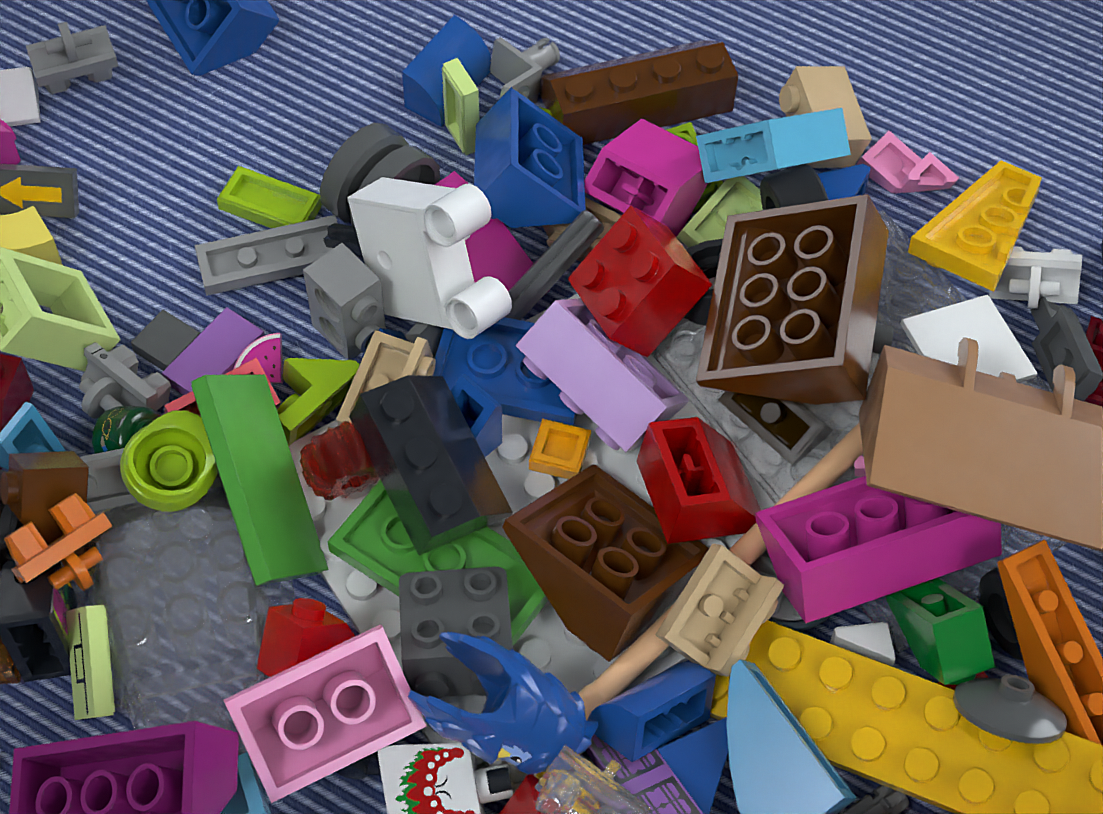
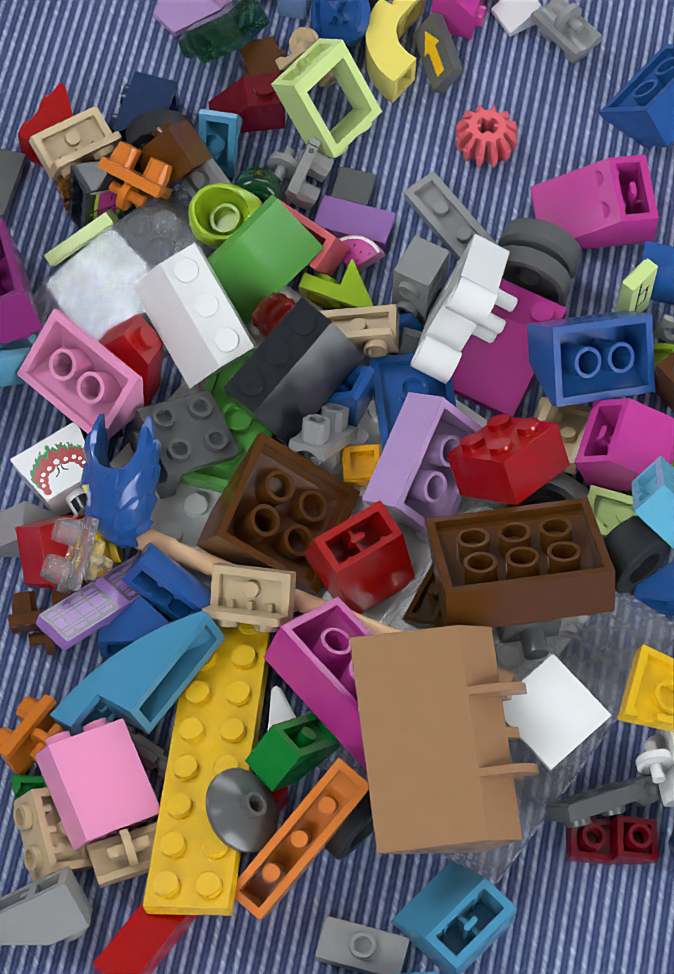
camera: 70 degrees right, 5 degrees up
(171, 182) = (486, 136): none -> coral gear
(267, 199) = (503, 201): lime tile -> none
(305, 540) = (193, 315): none -> white slope
(320, 101) = (601, 202): none -> dark pink slope
(519, 465) = (325, 436): none -> light grey hips
(553, 263) = (506, 401): dark grey axle -> none

